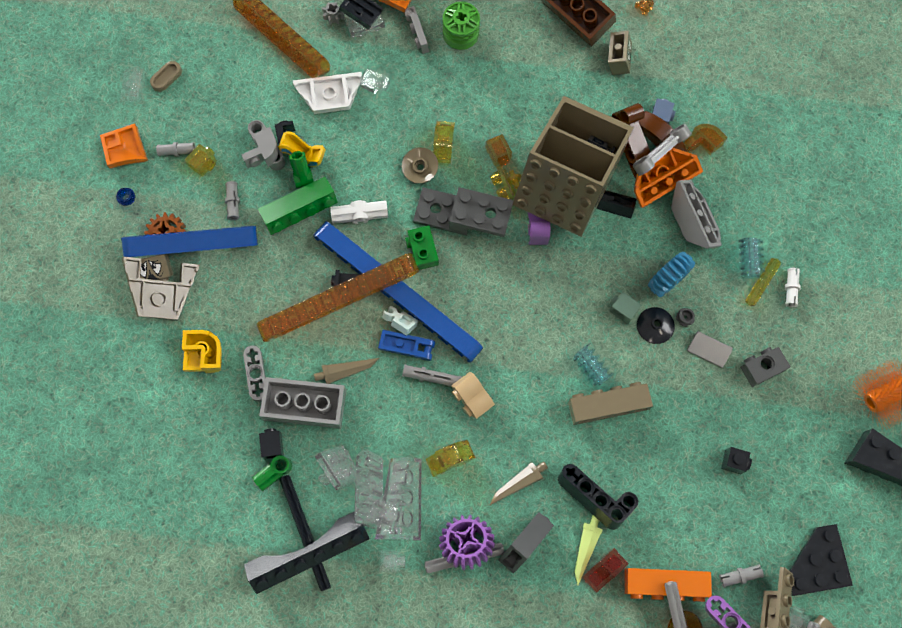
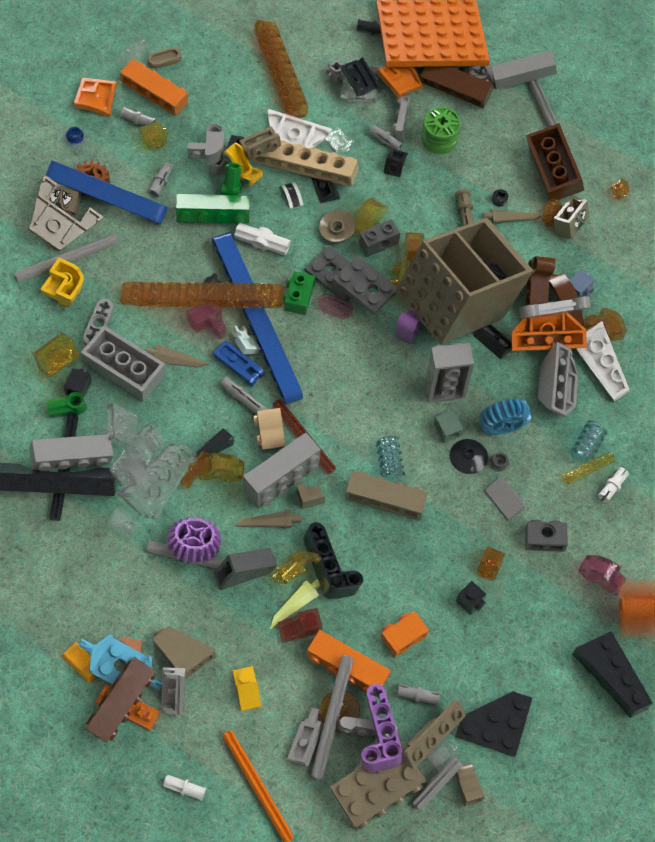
camera: 25 degrees right, 10 degrees down
(173, 110) = (154, 87): none -> orange brick
(187, 324) = (69, 256): none -> light grey axle
(235, 428) = (56, 354): none -> clear yellow brick
(305, 520) = (70, 451): none -> light grey brick
(308, 119) = (260, 143): none -> dark tan bracket
(351, 314) = (207, 315): none -> clear pink brick
(361, 153) = (293, 195): none -> sticker
(363, 120) = (312, 165): none -> tan brick
(384, 130) = (325, 190): none -> black slope
(413, 56) = (385, 137): none -> light grey pin
(429, 472) = (195, 469): none -> clear orange pin
(434, 430) = (218, 443): none -> black slope
(436, 76) = (395, 162): none -> black bracket
(460, 243) = (335, 306): none -> tile
(464, 157) = (379, 238): none -> dark grey brick
(504, 385) = (299, 430): none -> clear red axle
(509, 427) = (282, 470): none -> light grey brick
(523, 88) = (464, 205): none -> dark tan pin
(542, 439) = (310, 496): none -> dark tan panel
(546, 59) = (498, 202): none -> black bush
(558, 80) = (509, 216): none -> dark tan bar
(569, 516) = (294, 566): none -> clear yellow wing
(599, 56) = (550, 210): none -> clear orange brick
(606, 260) = (448, 372): none -> light grey brick
(698, 526) = (404, 633): none -> orange brick
(722, 176) = (603, 362): none -> white wing
(733, 417) = (490, 563): none -> clear orange bracket
(830, 375) = (604, 571): none -> clear pink brick

